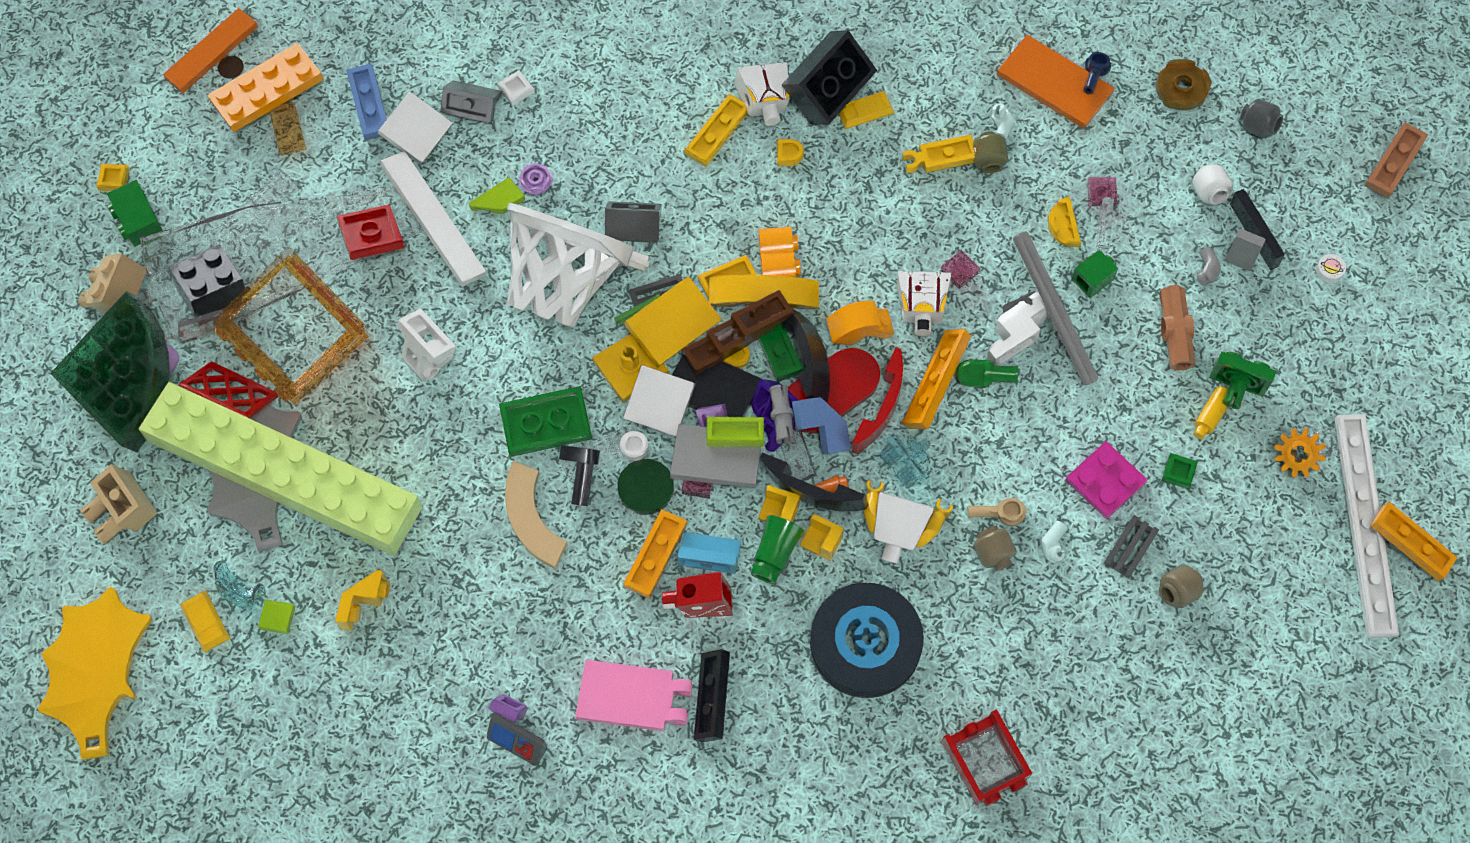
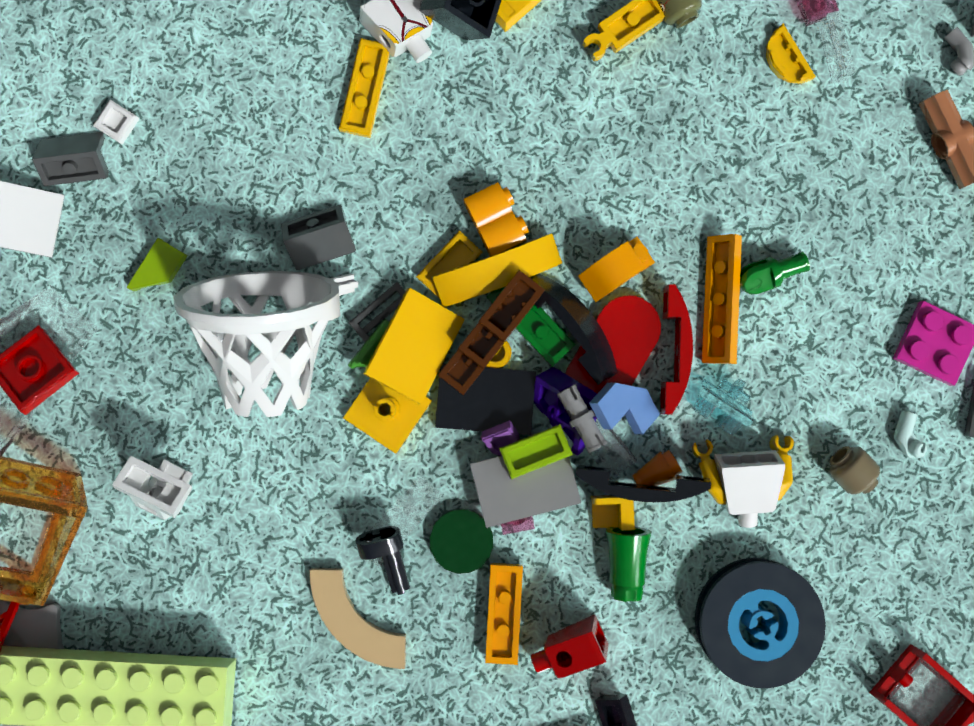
camera: 25 degrees left, 20 degrees up
(433, 218) = (94, 320): white tile -> none
(533, 172) = (178, 229): lavender plate -> none
(545, 421) = (323, 508): green tile -> none
(634, 445) = (431, 504): white tile -> none
(659, 400) = (437, 442): white tile -> none
(709, 553) = (558, 588): medium azure panel -> none
(789, 152) = (455, 85): yellow tile -> none
(822, 537) = (671, 527): yellow panel -> none
(922, 298) = (672, 210): white torso -> none
(961, 269) = (698, 158): clear pink plate -> none
(1009, 511) = (850, 419): tan plate -> none
(1018, 327) = (786, 198): white plate -> none
(1055, 308) = (823, 169): light grey axle -> none
(1095, 273) = (845, 108): green brick -> none

